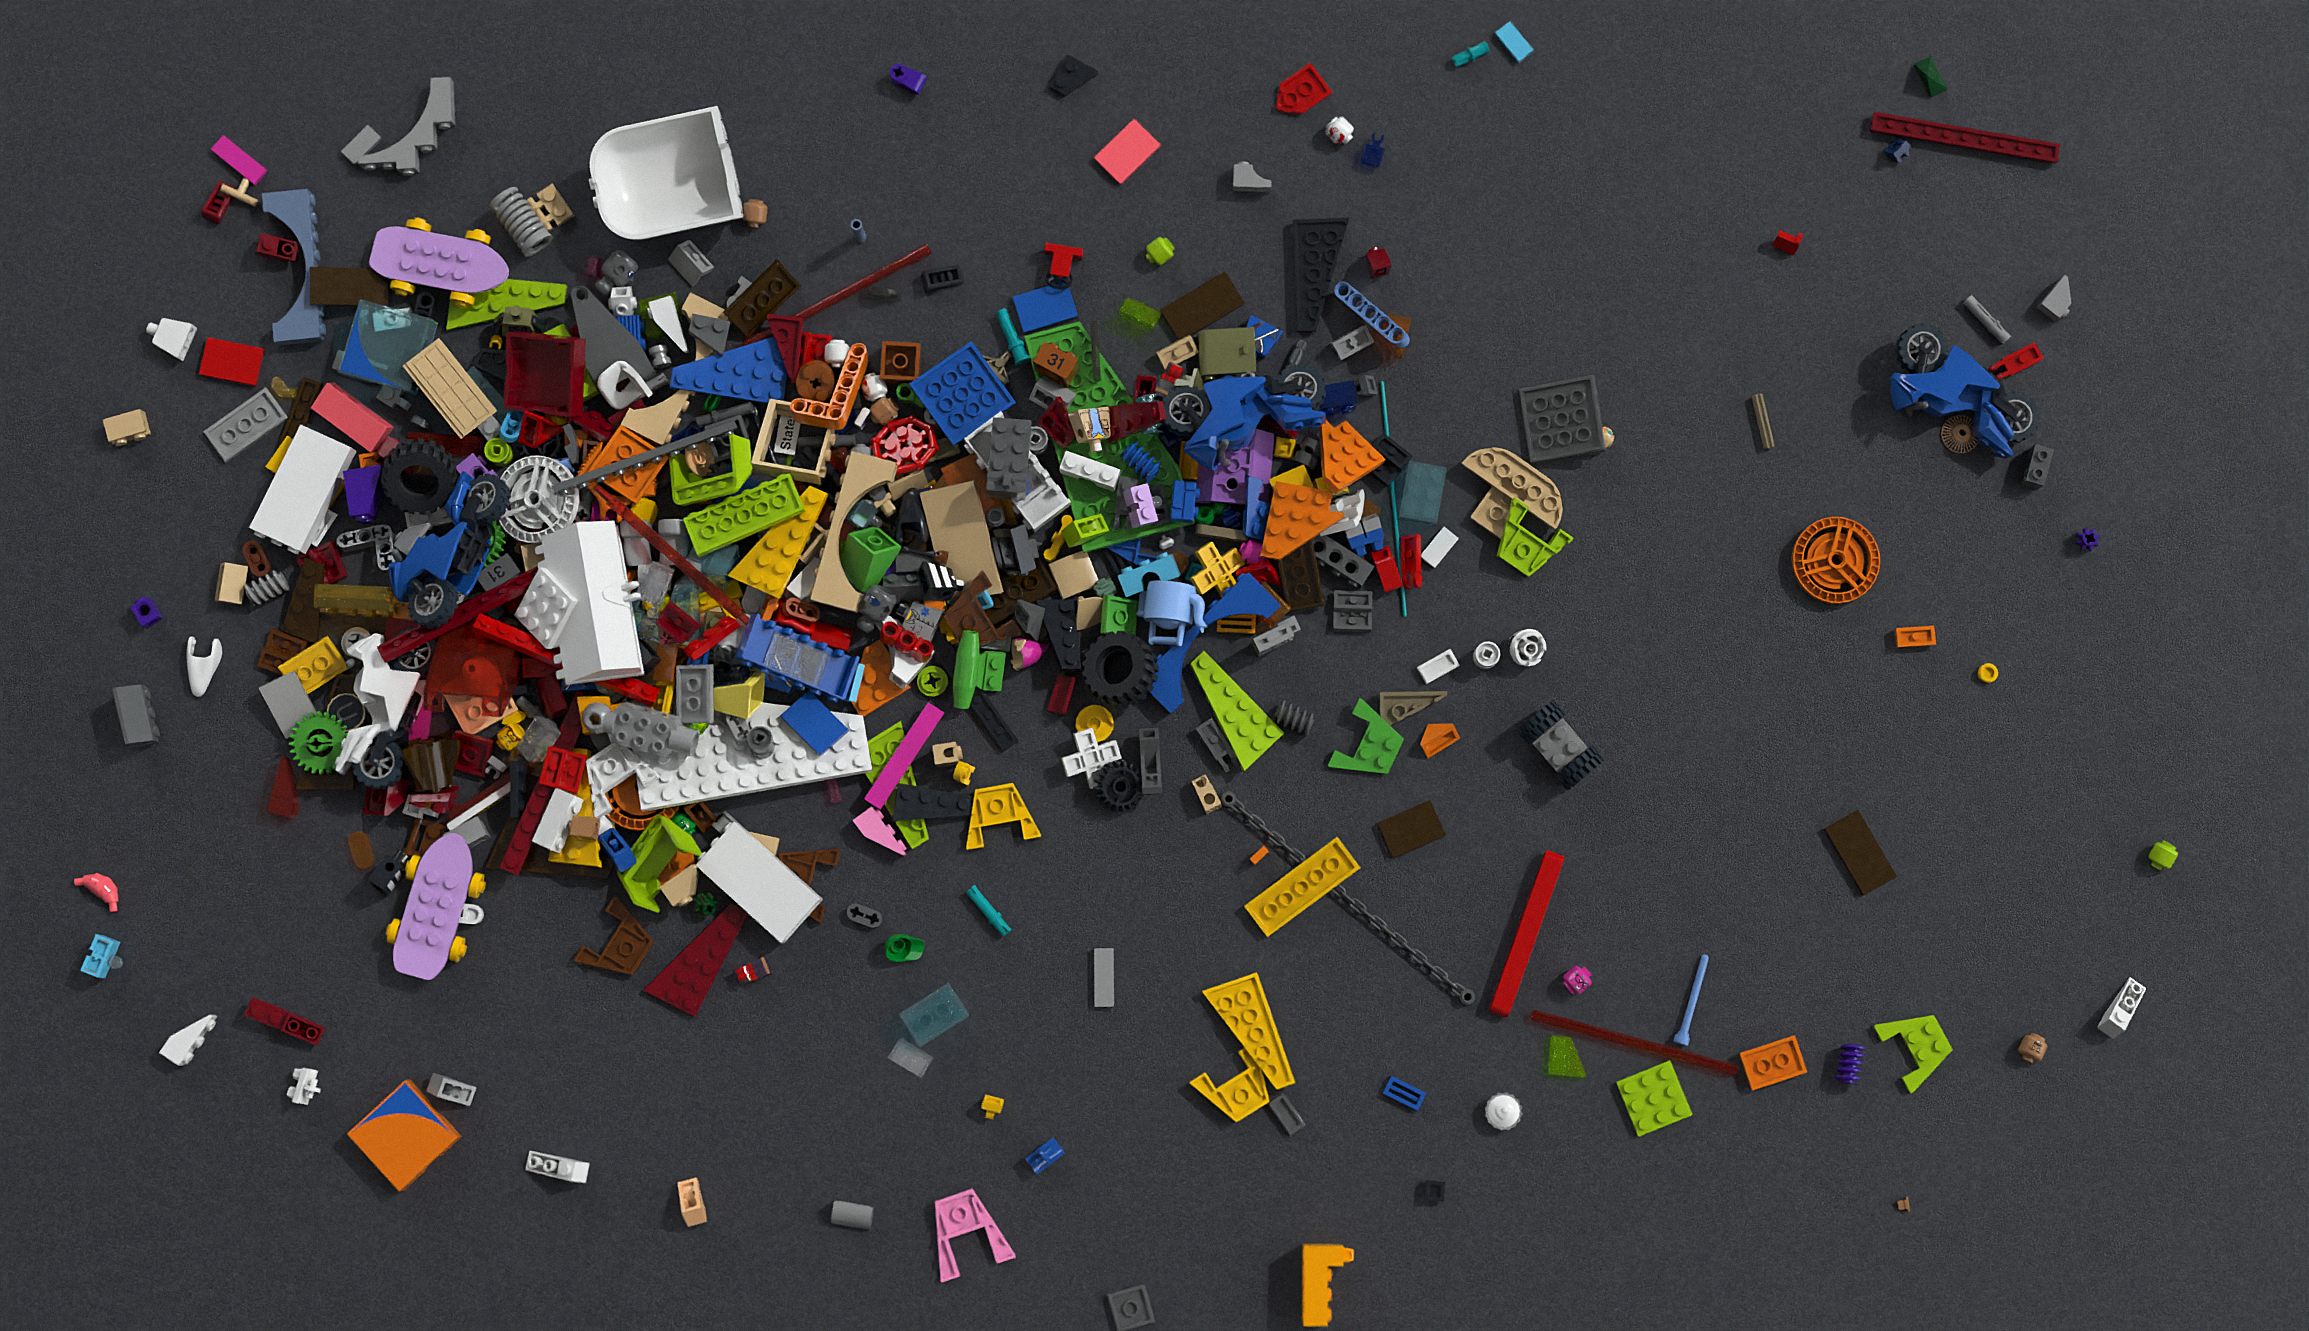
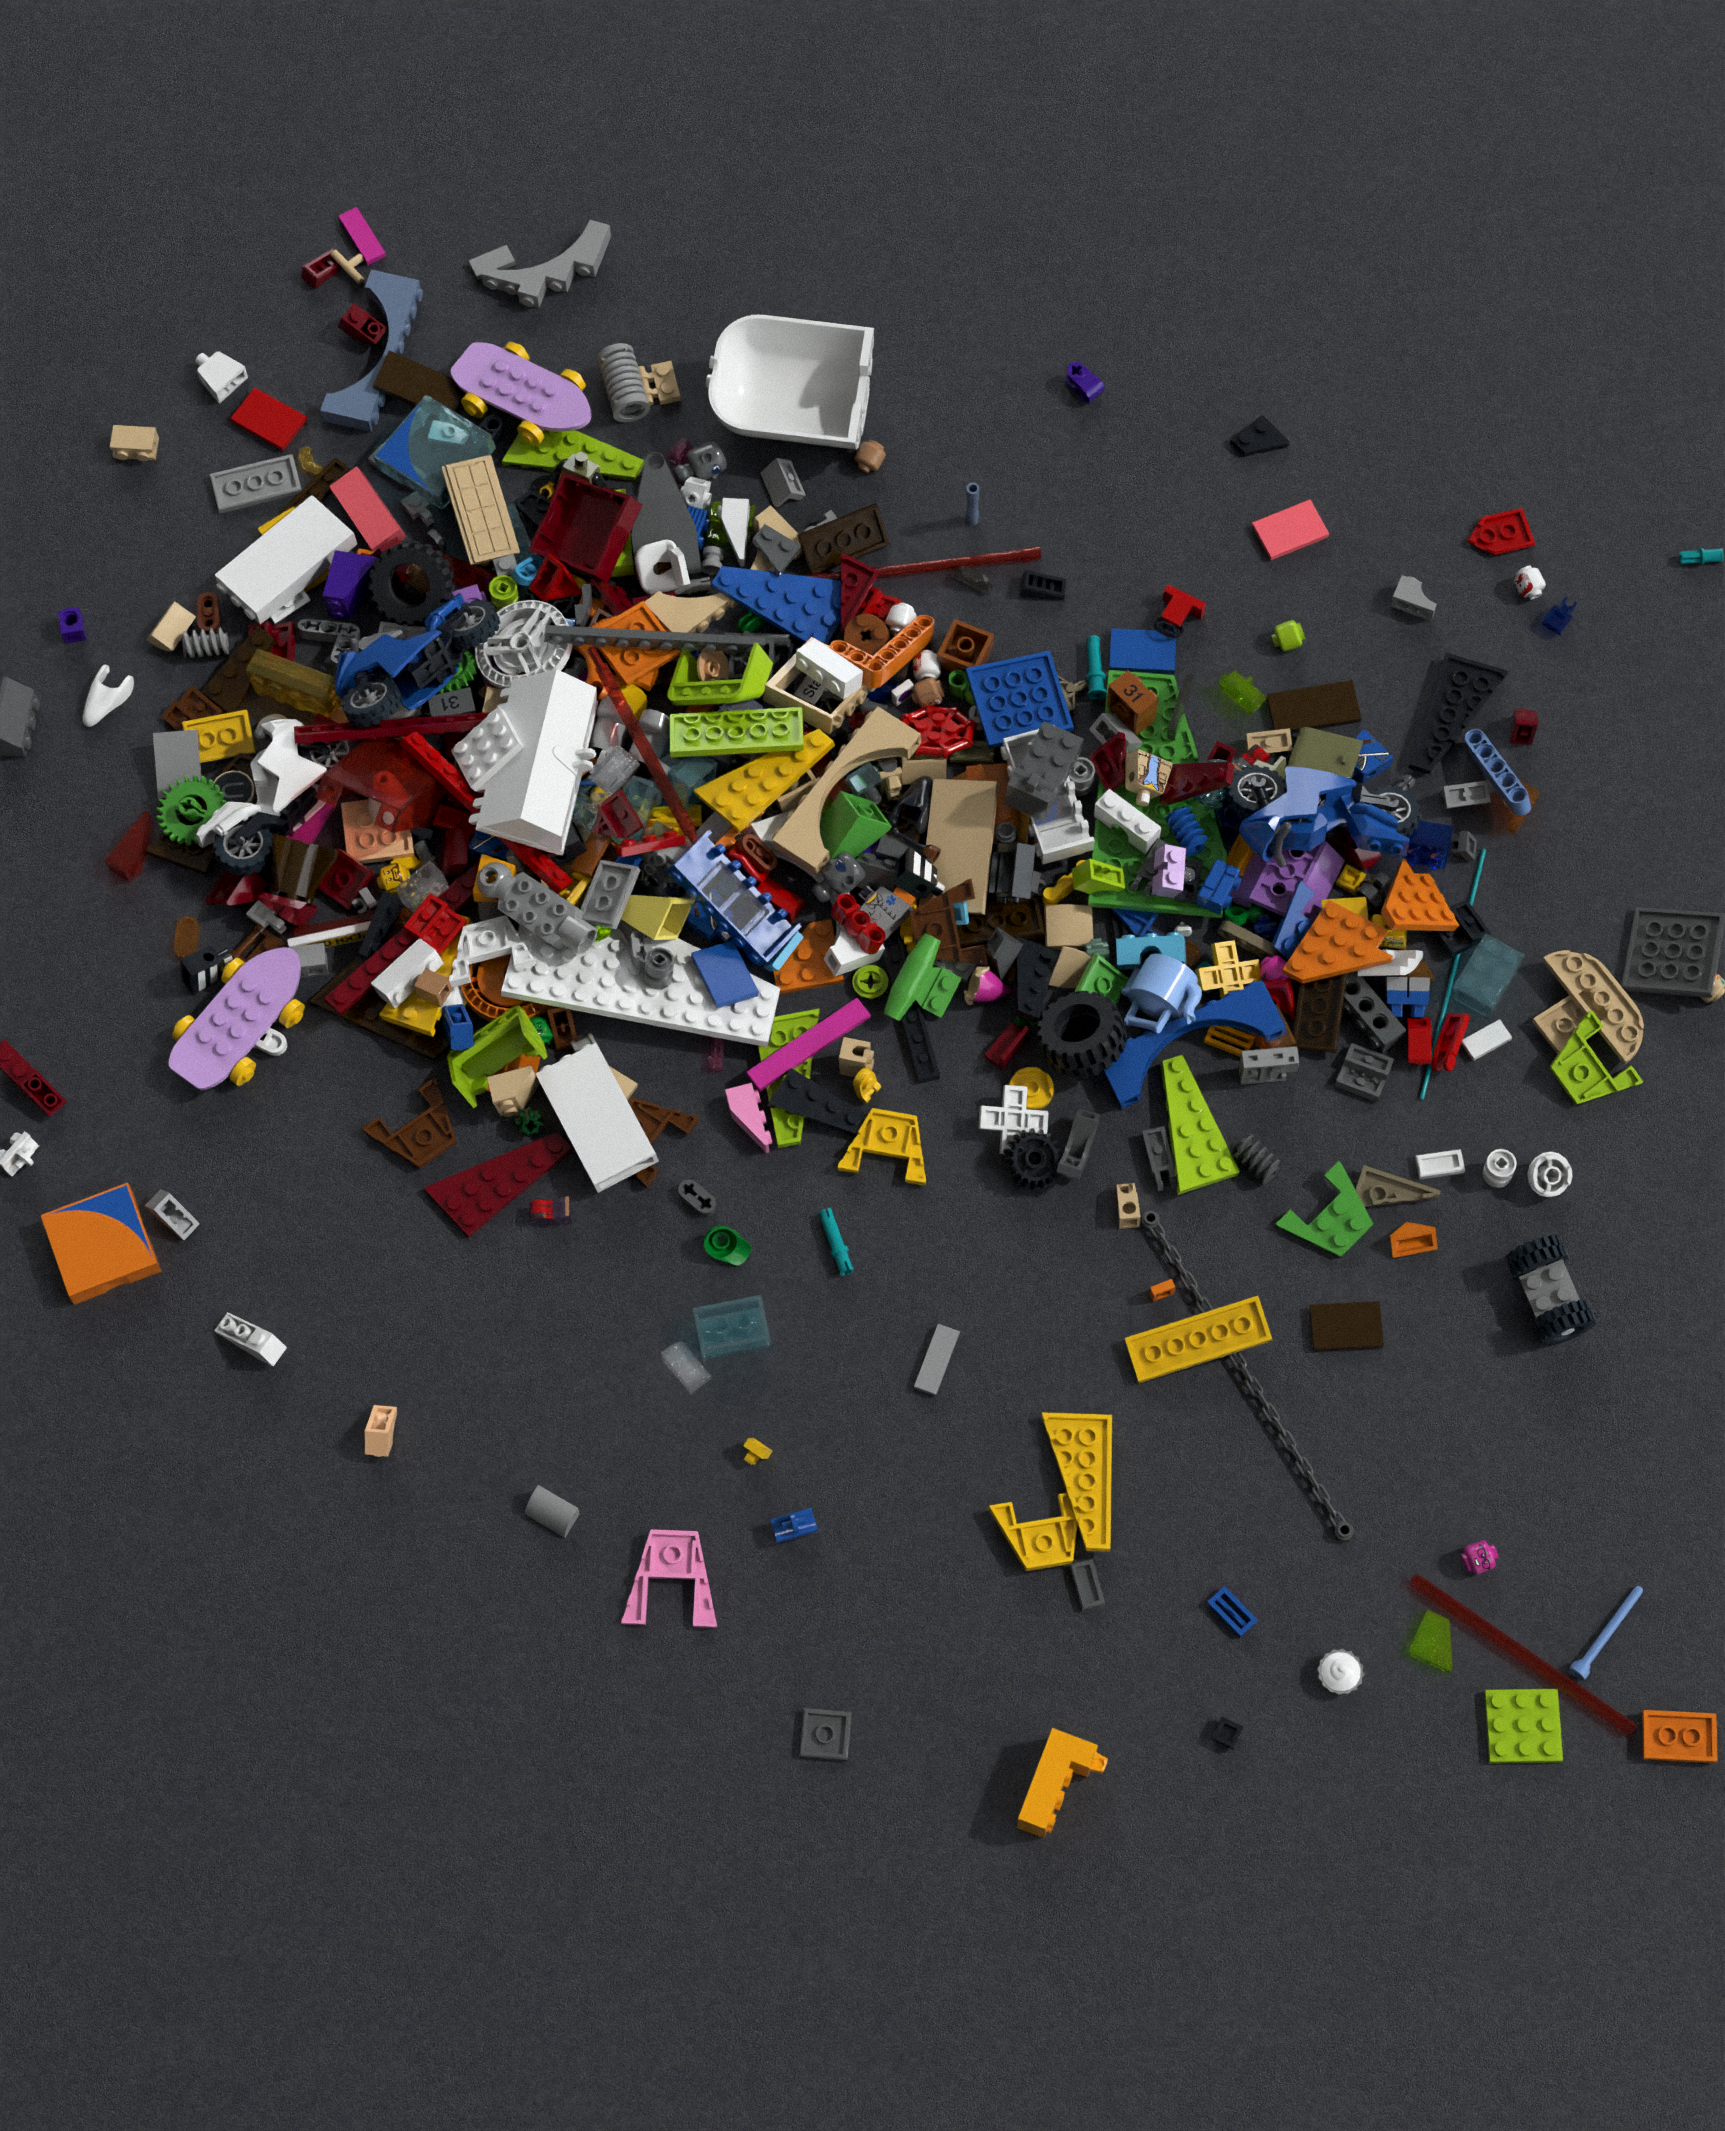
camera: 25 degrees right, 15 degrees down
(797, 428) = (828, 668): none -> white brick
(1526, 933) = (1437, 1486): red beam -> none

